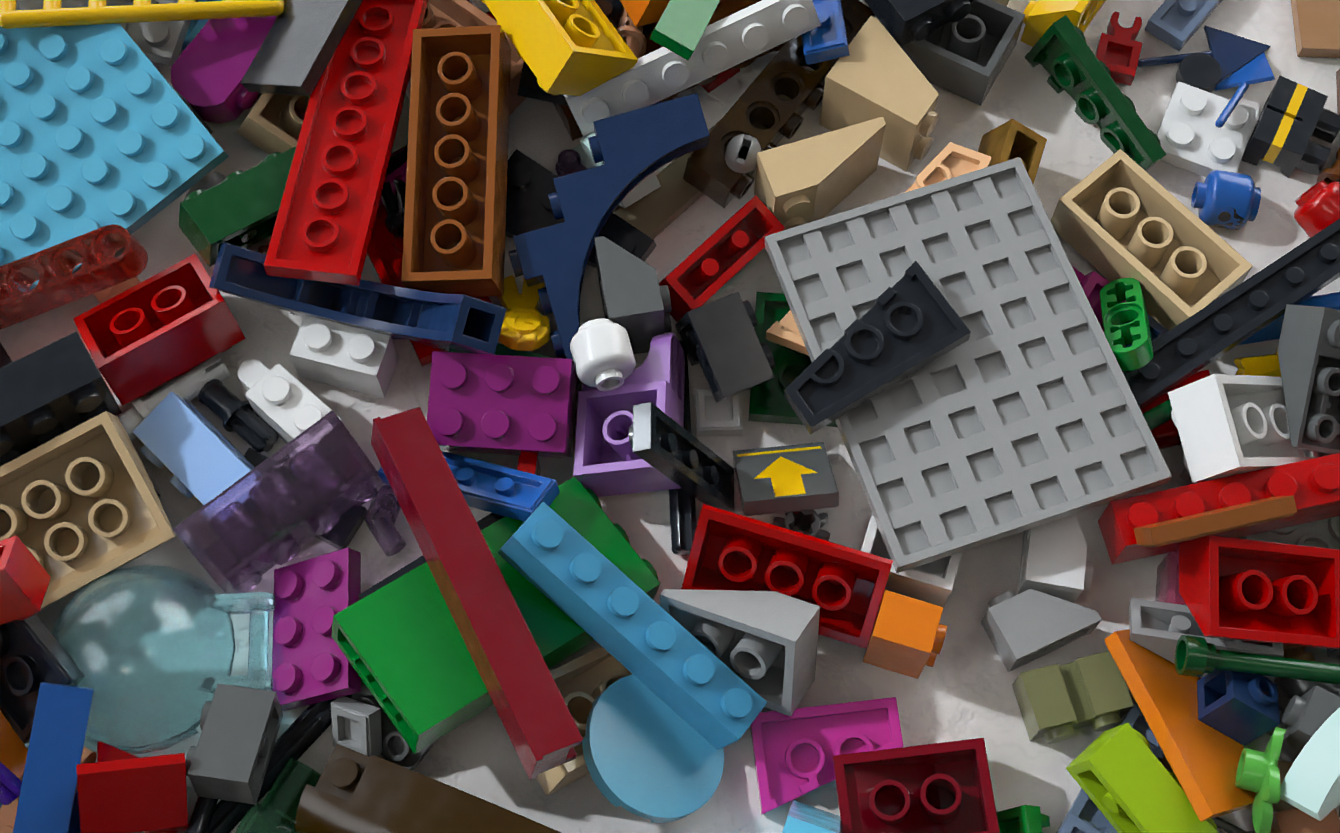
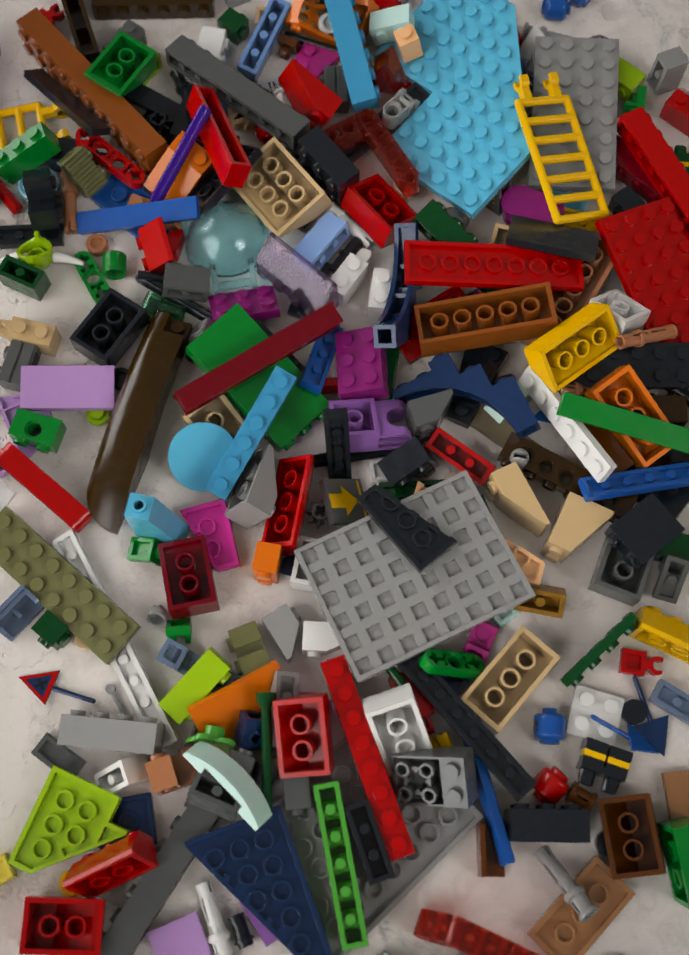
camera: 80 degrees right, 5 degrees up
(523, 324) = (407, 368): yellow piece -> none
(602, 354) = (389, 402): white head -> none
(1215, 521) = (333, 702): dark orange tile -> none

